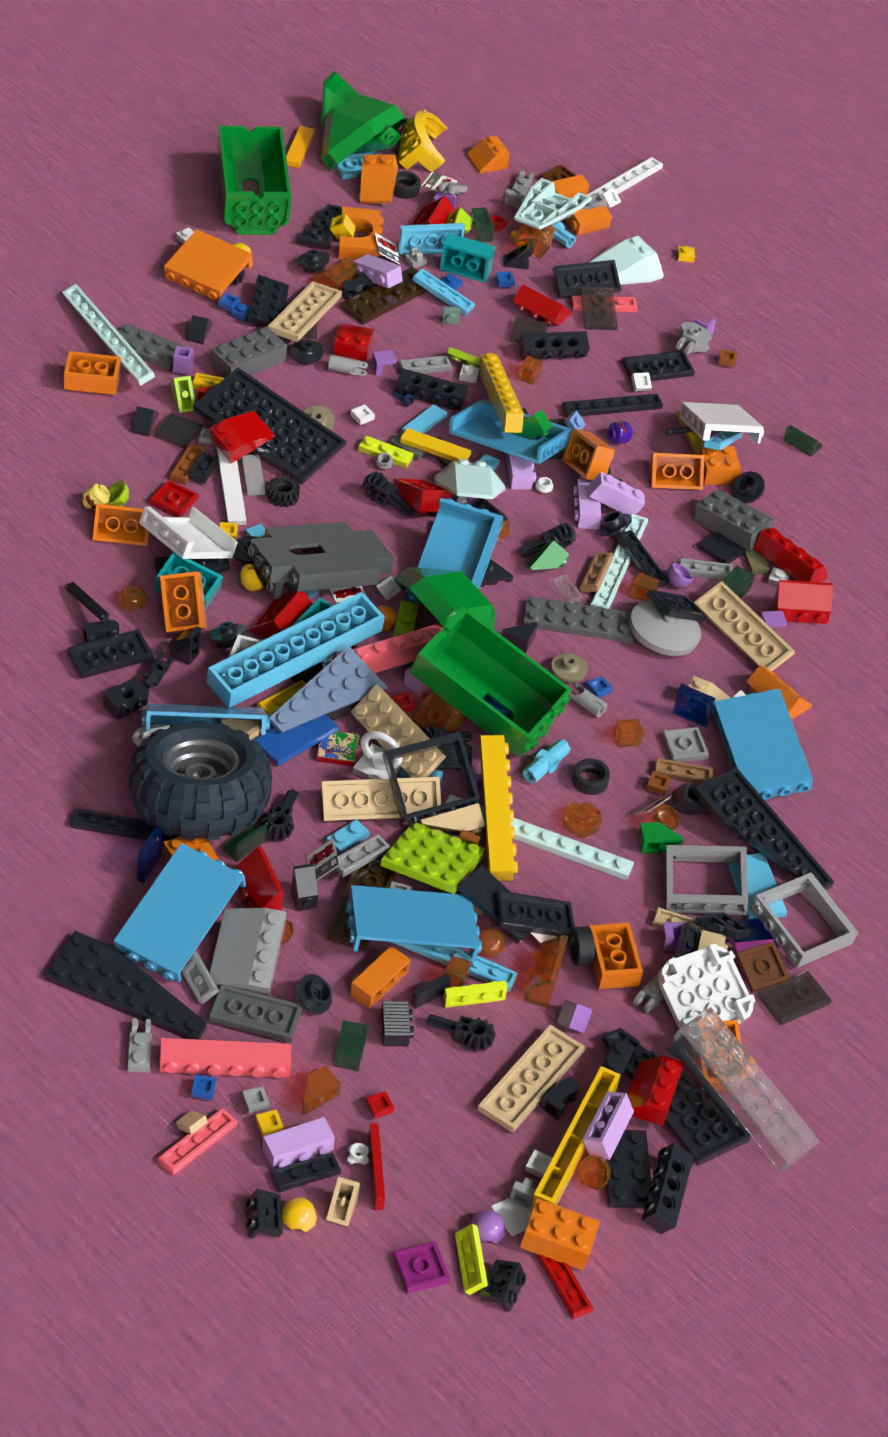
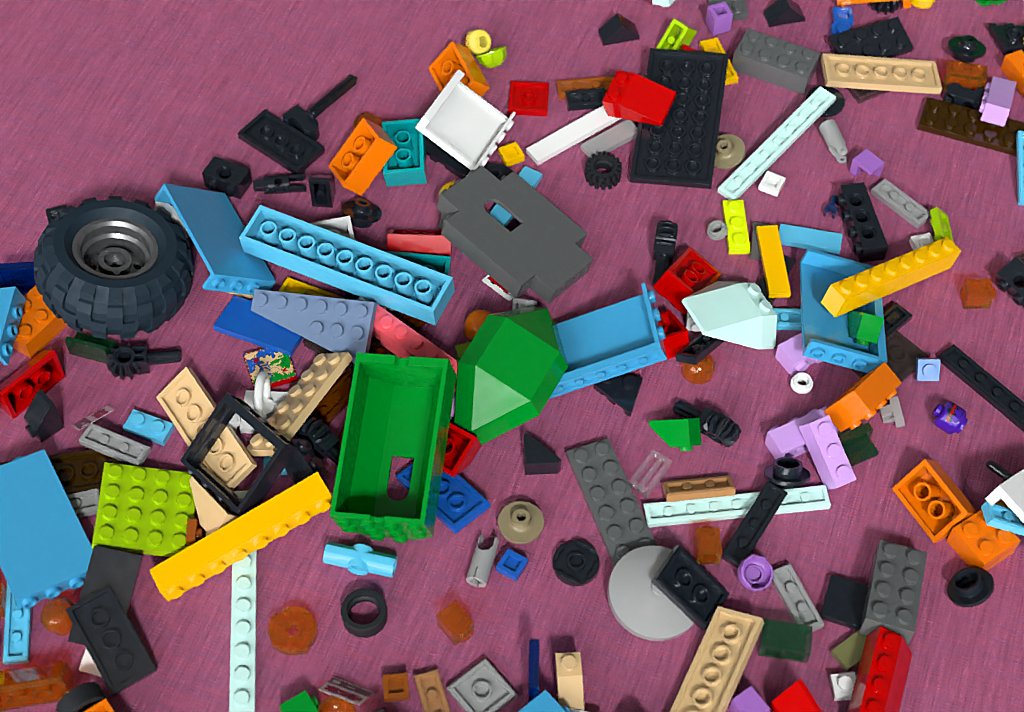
camera: 70 degrees right, 10 degrees up
(178, 430) = (625, 58): clear smoke tile -> none
(331, 392) = (777, 144): none -> light aqua tile
(353, 342) = (878, 129): red slope -> none
(451, 315) = (997, 190): sand green plate -> none
(614, 658) = (576, 563): none -> black tile

